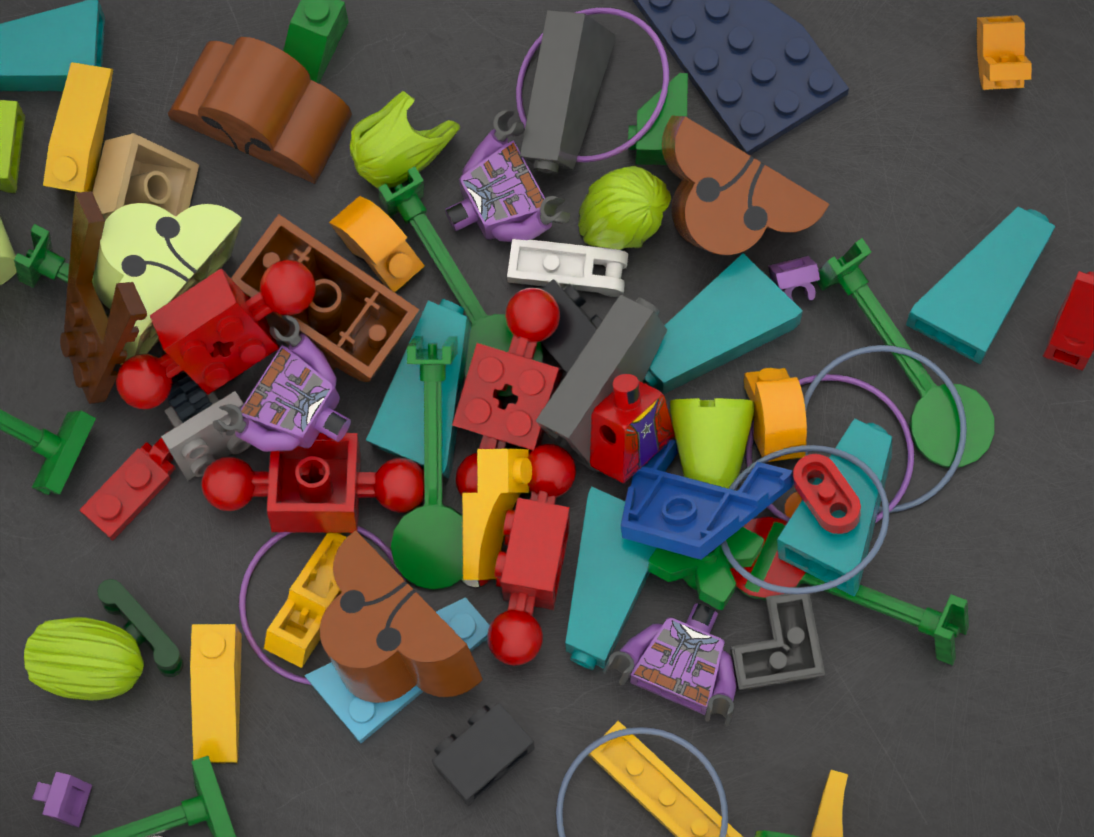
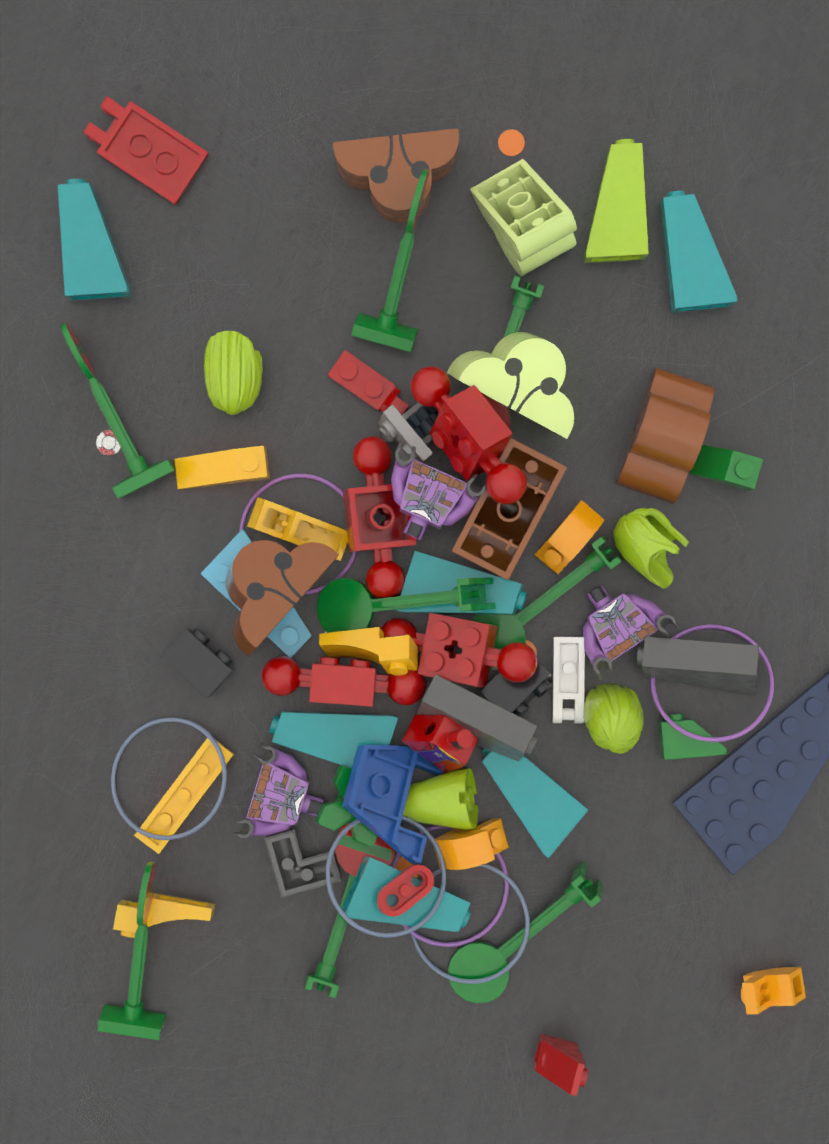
camera: 80 degrees right, 15 degrees up
(64, 799) = (136, 372): medium lavender tile -> none
(79, 129) = (630, 304): yellow slope -> none
(89, 336) = (471, 334): reddish brown wing -> none
(141, 626) = (263, 408): dark green plate -> none
(143, 172) = (594, 357): tan slope -> none
(729, 195) = (627, 798): dark orange brick -> none
(795, 273) = (579, 847): medium lavender tile -> none
(978, 293) = (582, 987): teal slope -> none

